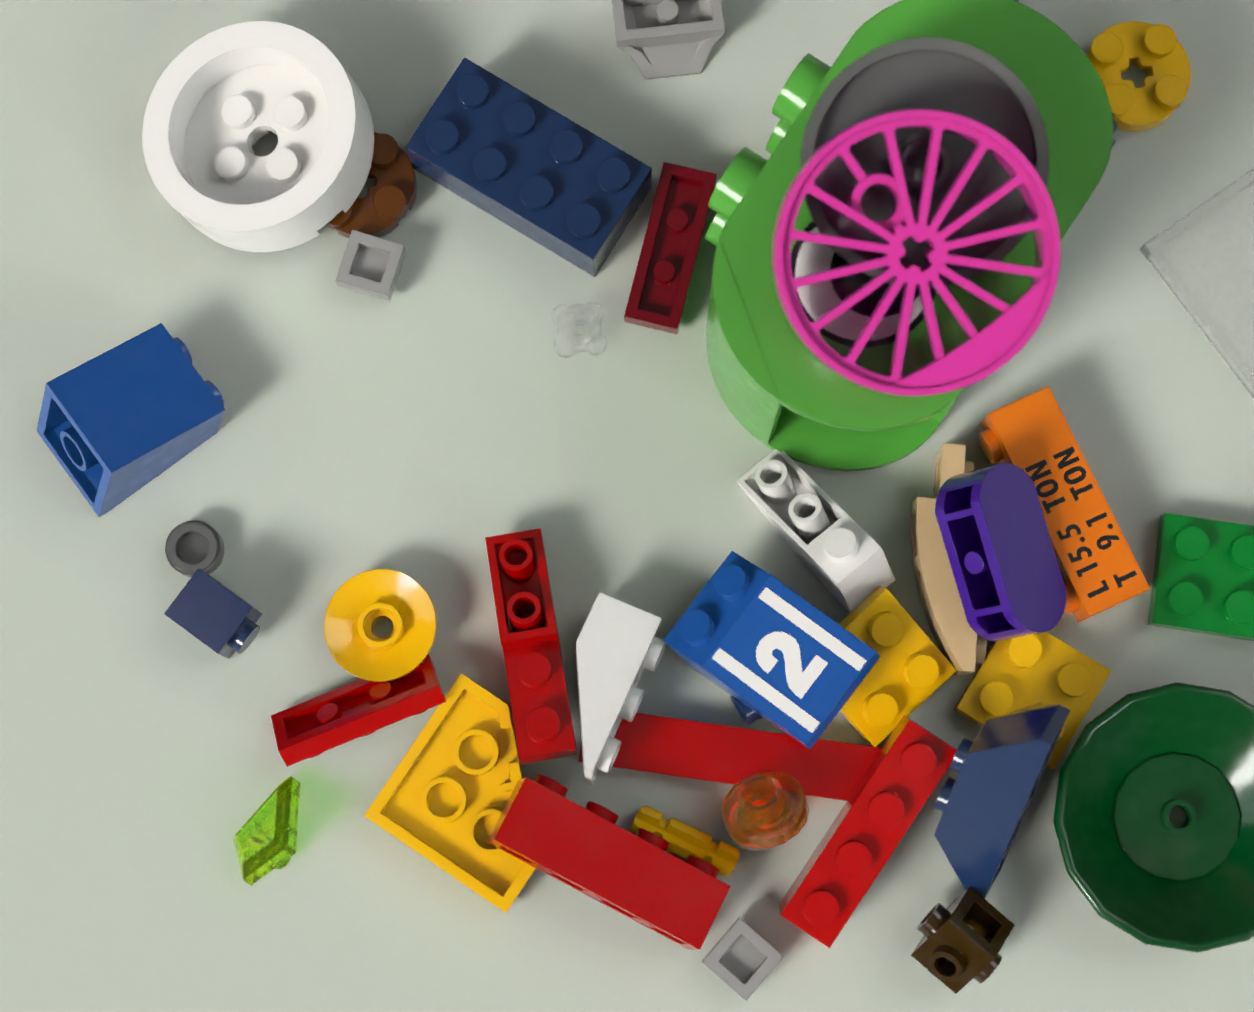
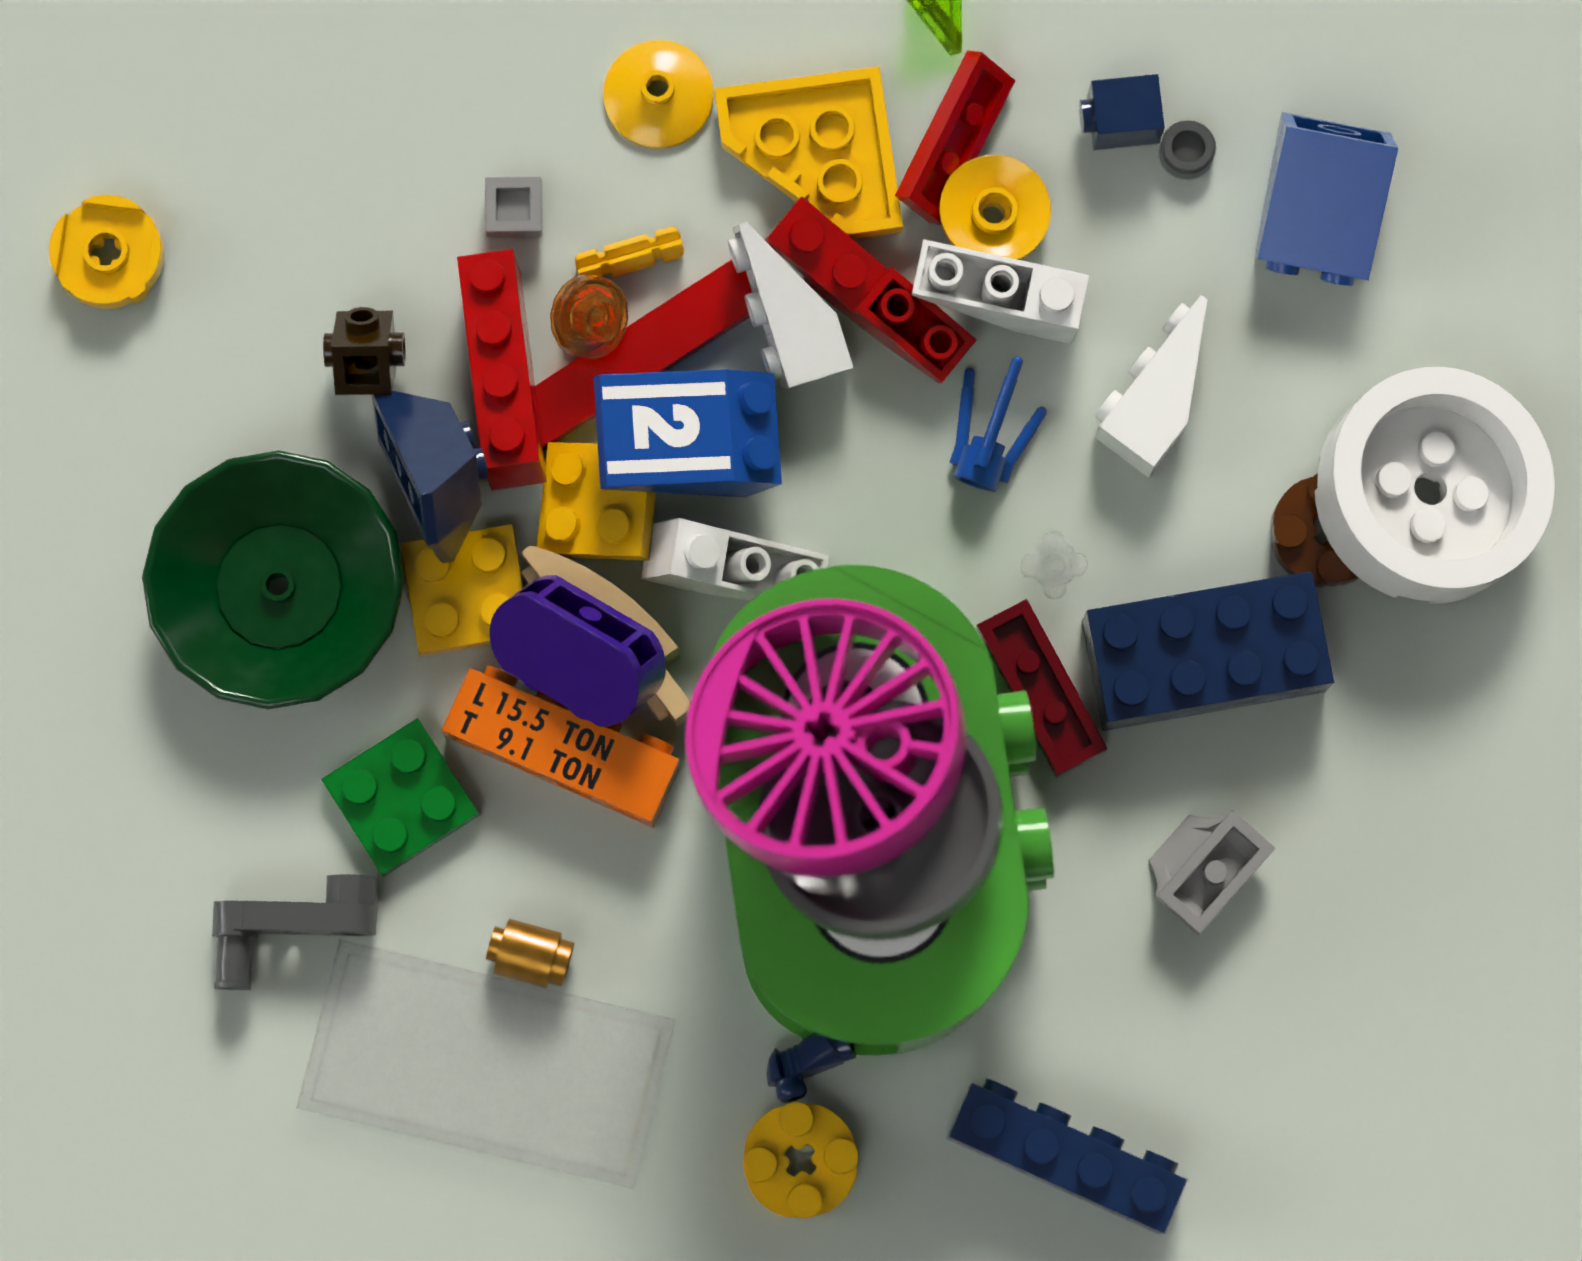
camera: 135 degrees right, 0 degrees up
(371, 265) = (1257, 471): light grey plate -> none
(396, 375) = (1157, 404): none -> white slope
(433, 554) = (1002, 290): none -> white slope
(559, 444) = (982, 460): none -> blue plant
(579, 947) = (663, 119): none -> yellow dish
(608, 862) = (669, 183): red brick -> none
(1213, 376) = (530, 954): none -> pearl gold brick

